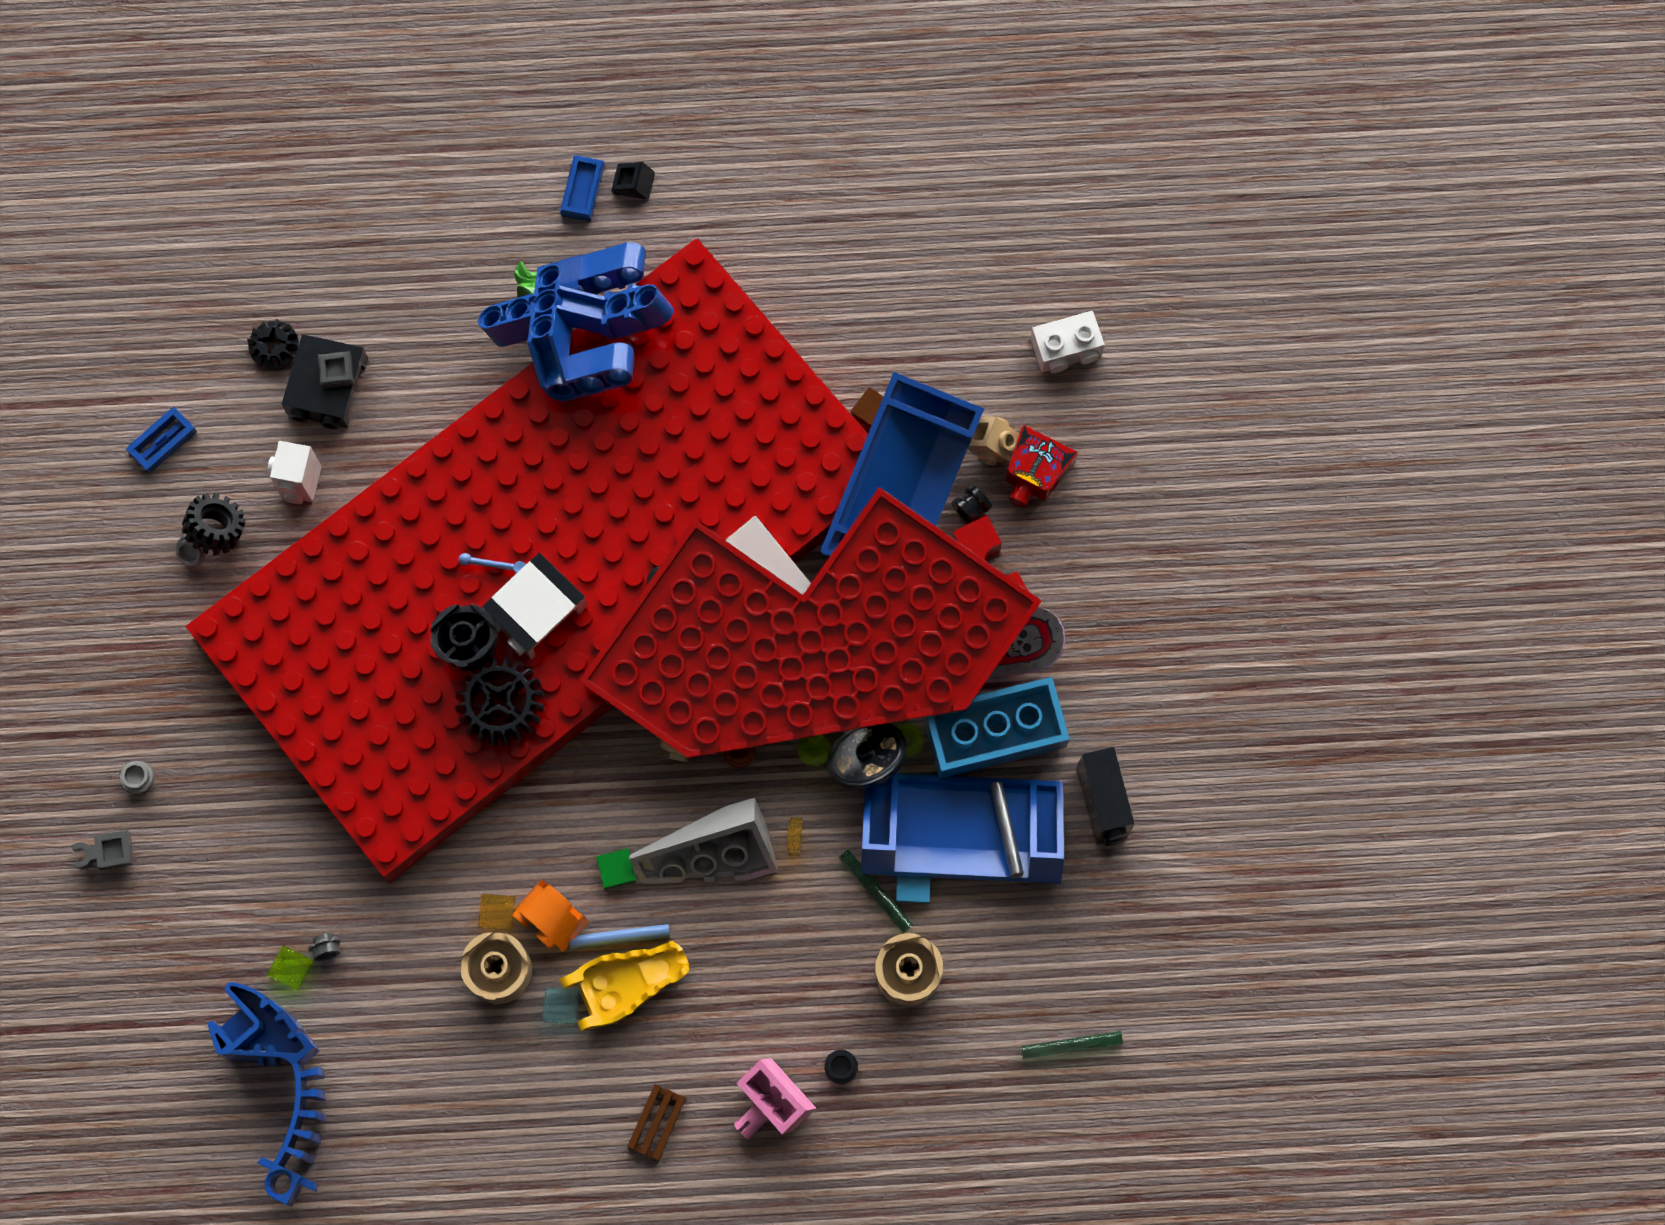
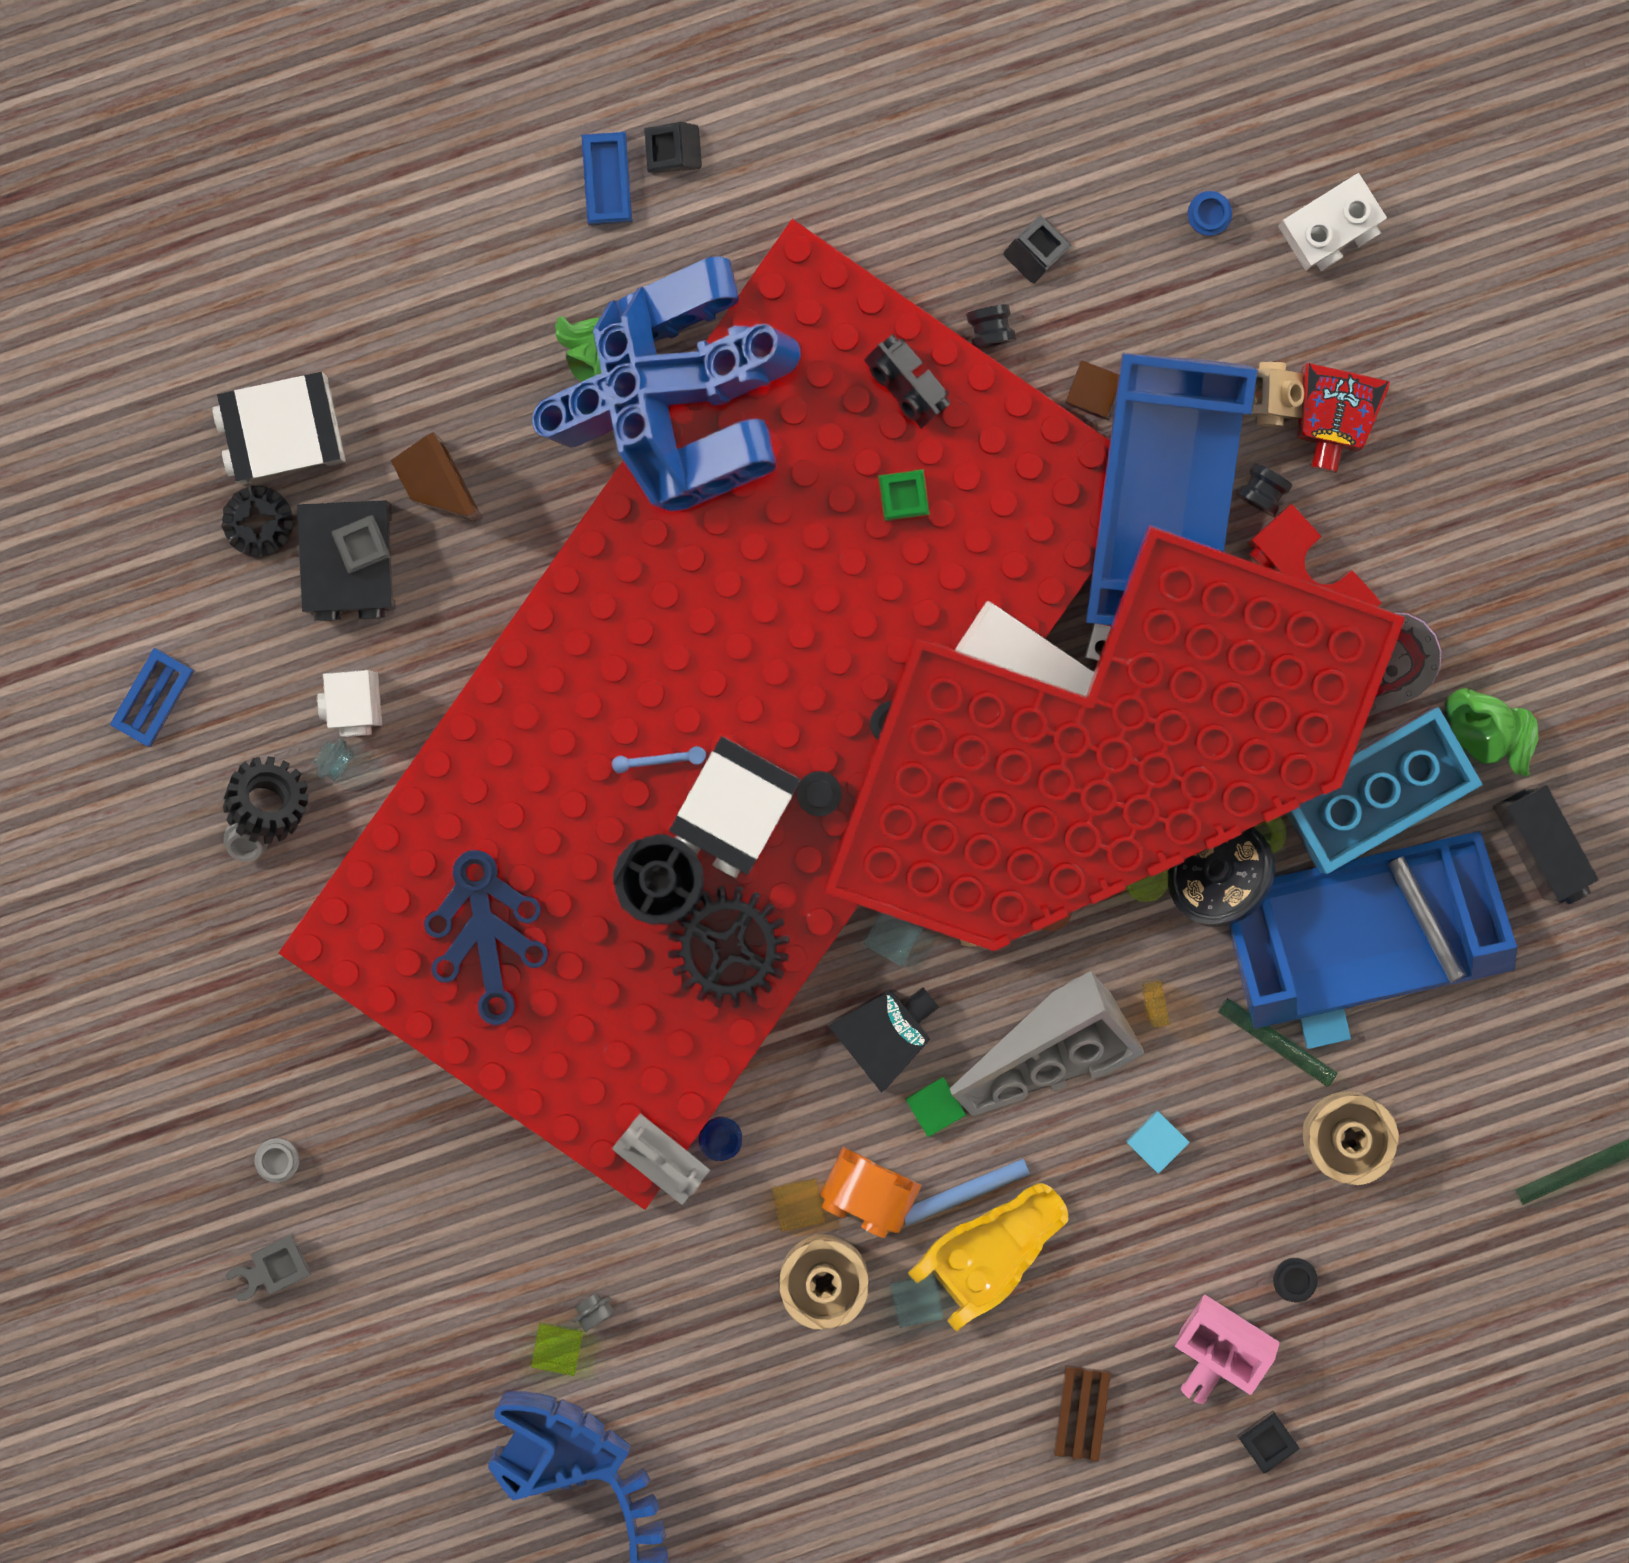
camera: 20 degrees left, 15 degrees up
(269, 512) = (332, 759): none -> clear light blue plate
(308, 283) = (278, 427): none -> white panel
(332, 645) = (484, 928): none -> dark blue plant
(401, 343) = (434, 479): none -> reddish brown slope
(404, 839) = (661, 1159): none -> light grey hinge
(455, 848) = (720, 1138): none -> clear blue plate
(595, 805) = (885, 1033): none -> black torso
(596, 615) = (819, 793): none -> black plate
(623, 740) = (892, 937): none -> clear light blue tile
(717, 433) = (903, 495): none -> green tile
(735, 346) = (892, 367): none -> black hinge
(769, 938) = (1157, 1141): none -> medium azure tile
(788, 1183) = (1268, 1442): none -> black tile
(813, 347) = (991, 326): none -> black wheel
(859, 309) = (1036, 249): none -> black slope
(985, 316) = (1209, 213): none -> blue plate
(1086, 708) = (1492, 729): none -> bright green hair

